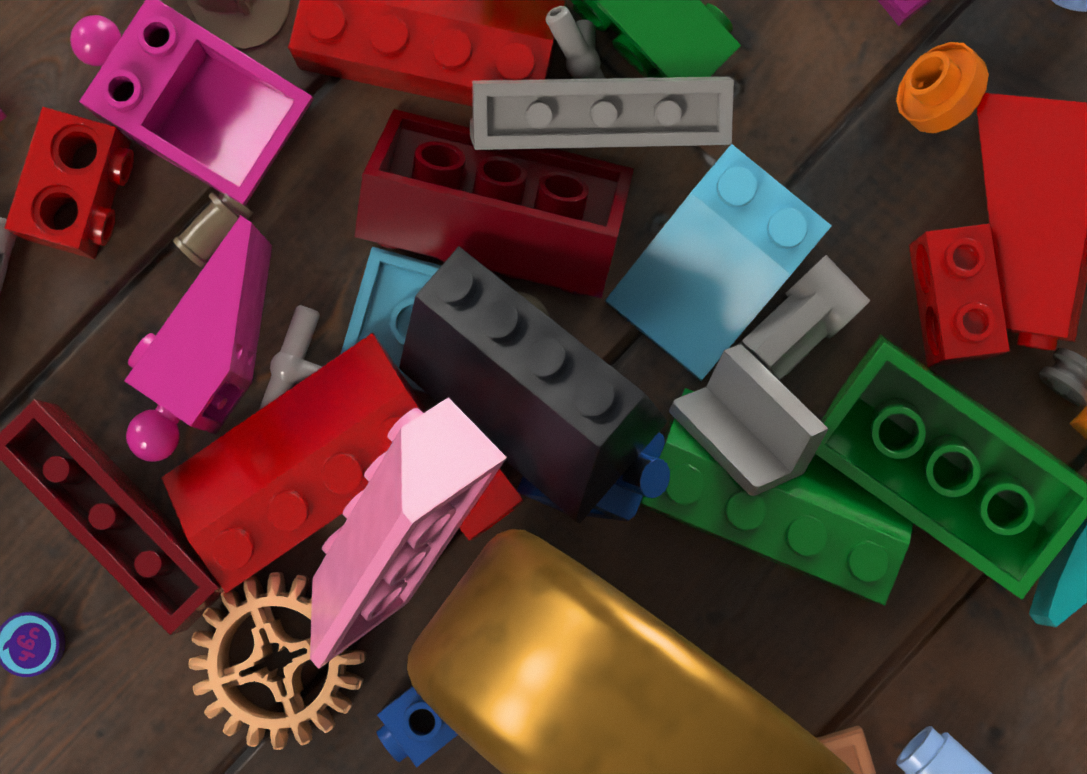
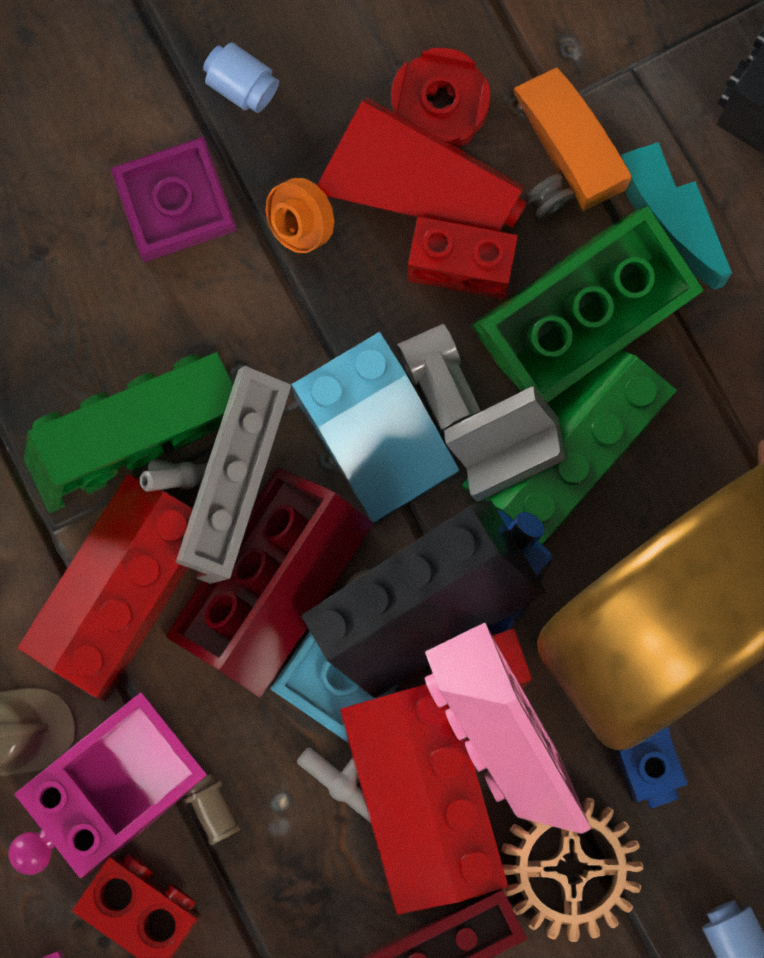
camera: 65 degrees left, 5 degrees down
(204, 349) = (316, 846): dark pink slope -> none

